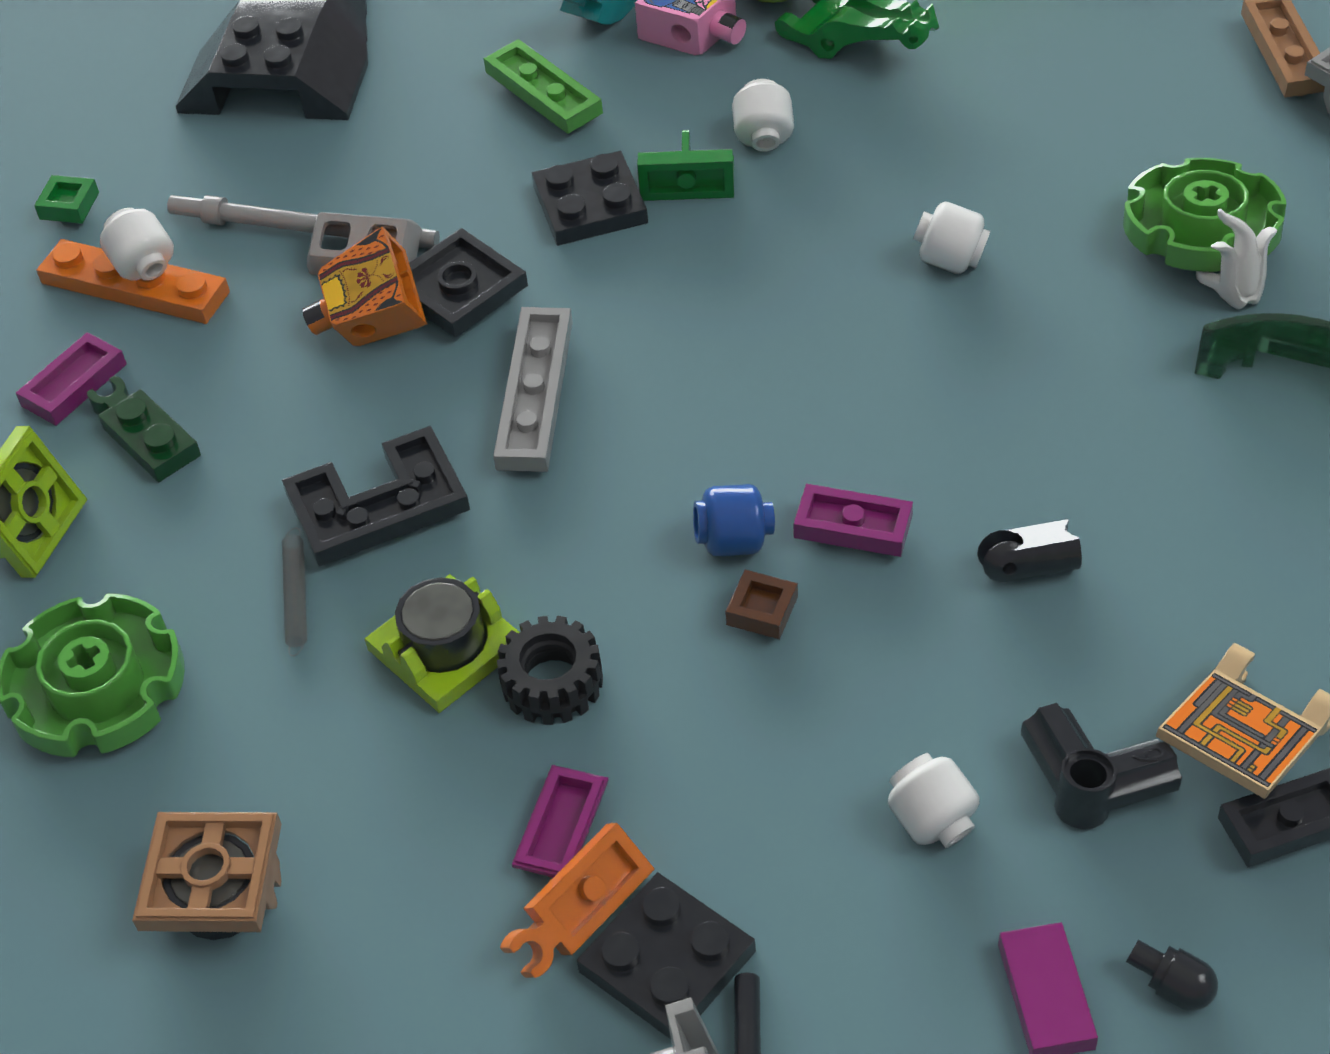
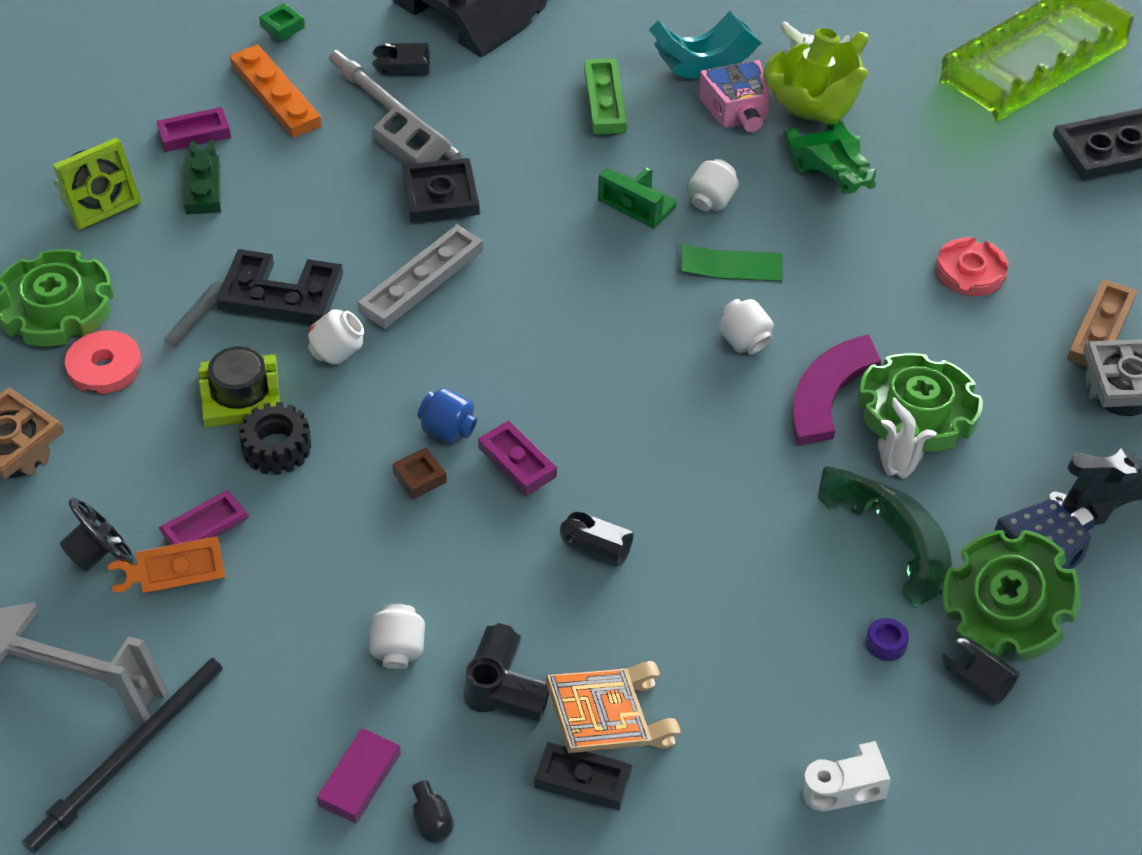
camera: 30 degrees right, 0 degrees up
(136, 244) = (281, 67): white head -> none
(228, 687) = (102, 345): none -> coral tile
(262, 164) = (402, 58): none -> black piece
(367, 292) = (380, 166): torso -> none
(452, 932) = (90, 542): none -> black wheel
(510, 509) = (335, 337): none -> white head
(589, 197) = (565, 181): black plate -> none
(665, 952) = (189, 625): black plate -> none
(857, 187) = (732, 263): none -> green sticker
(1084, 259) = (822, 381): none -> magenta tile
(1099, 59) = (971, 267): none -> coral tile

